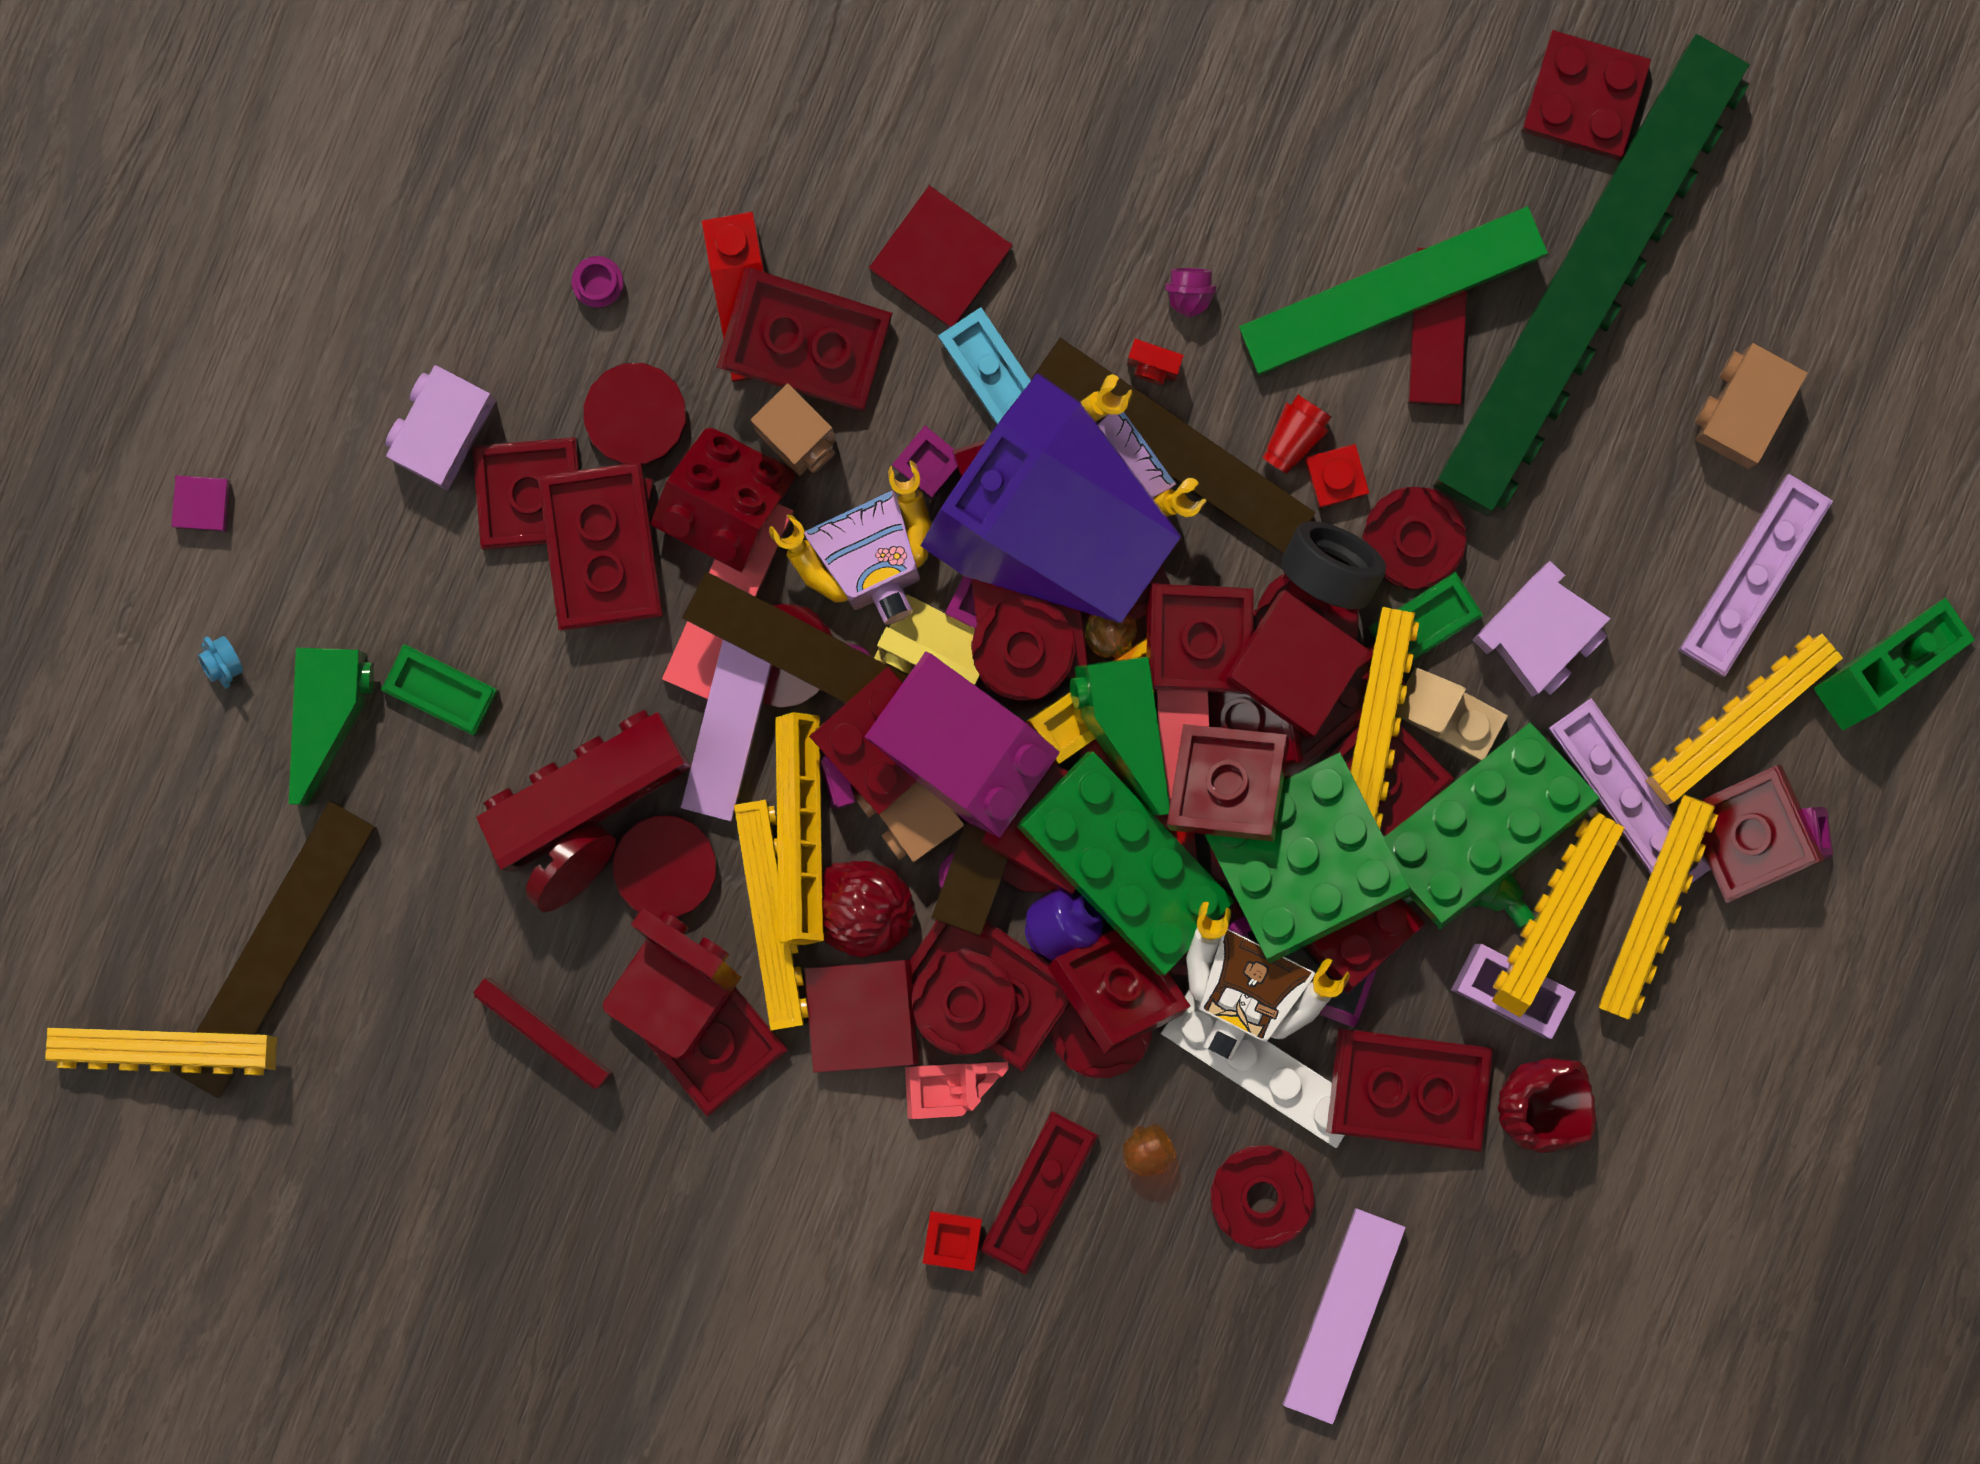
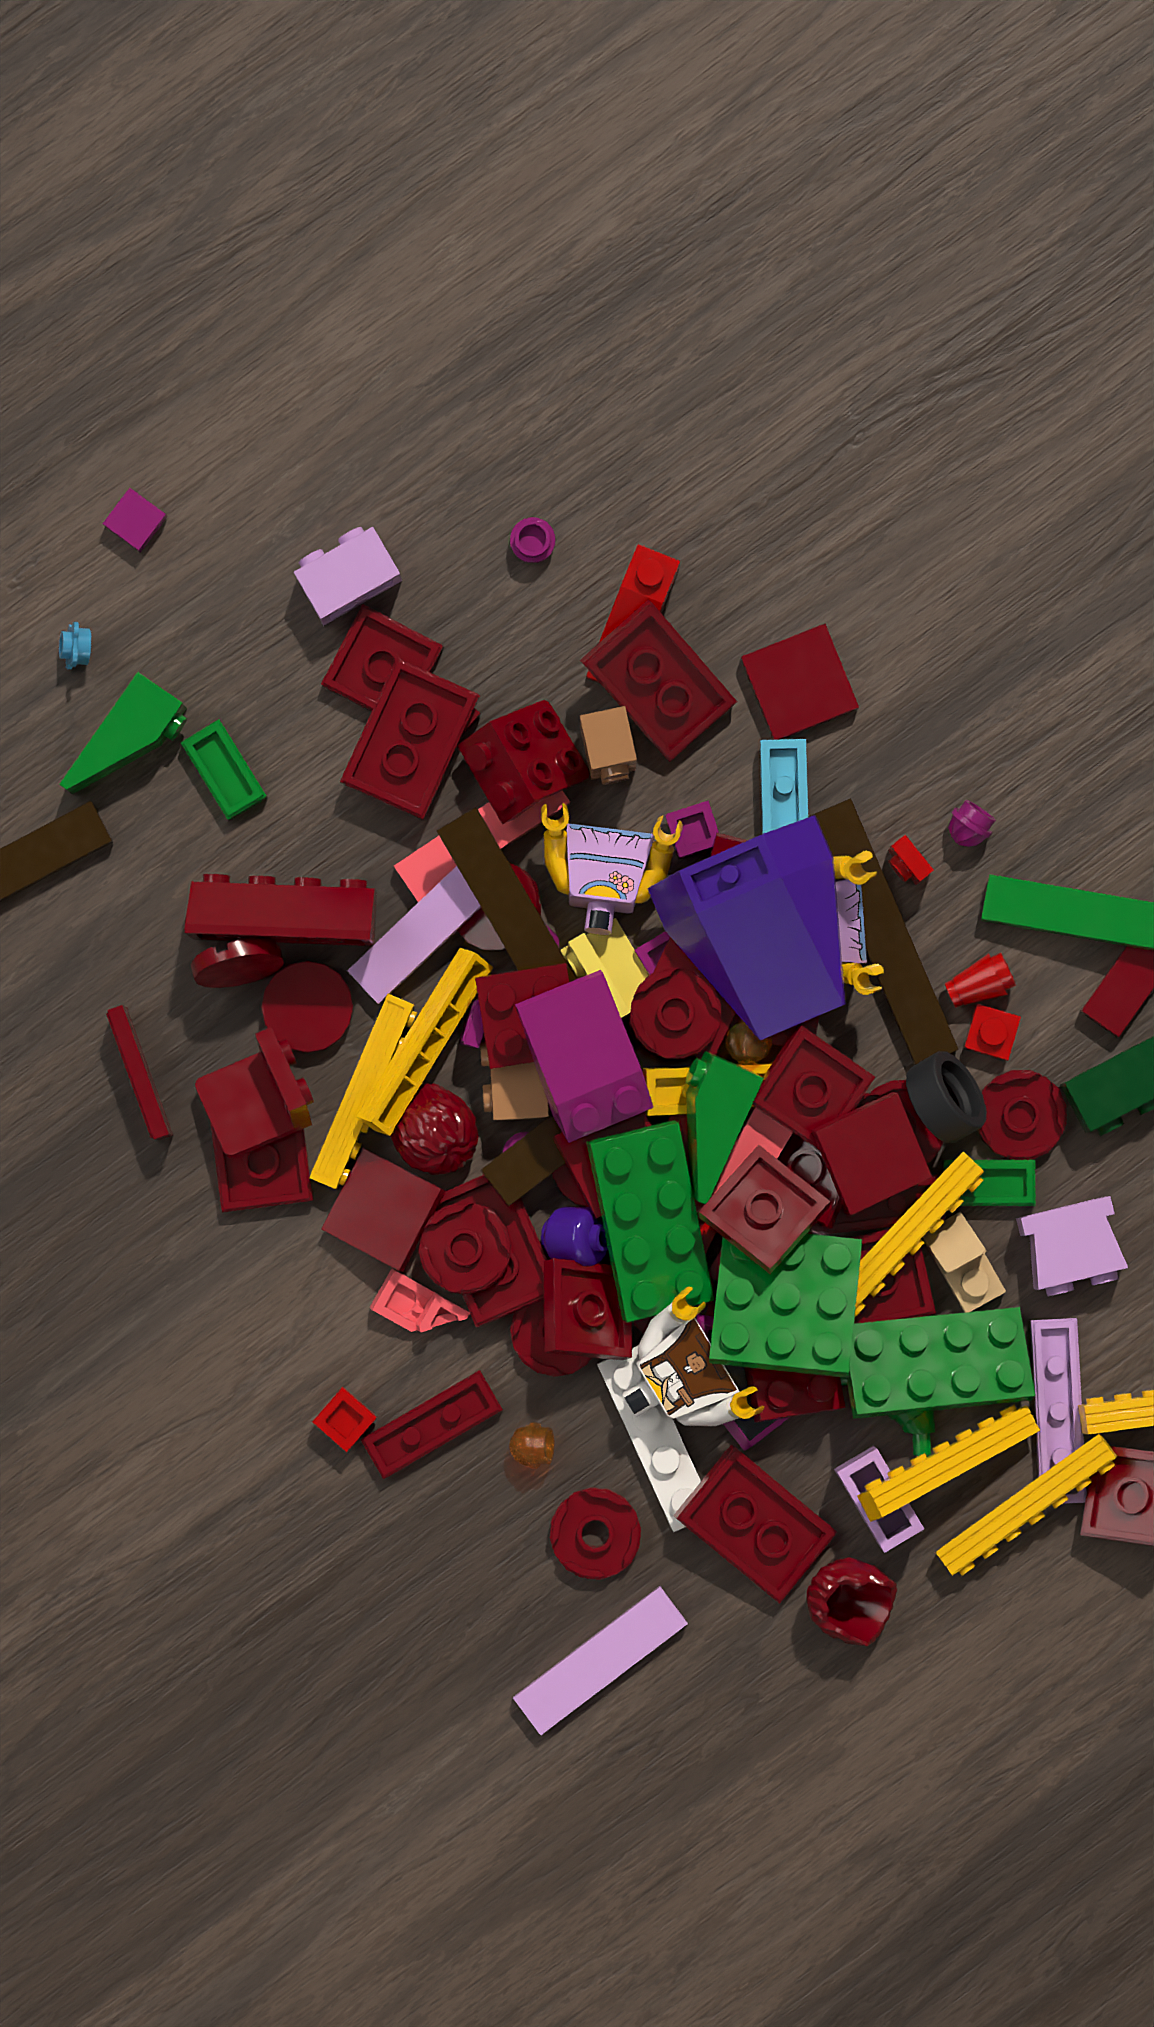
camera: 30 degrees right, 0 degrees up
(634, 414) = (498, 656): dark red tile -> none

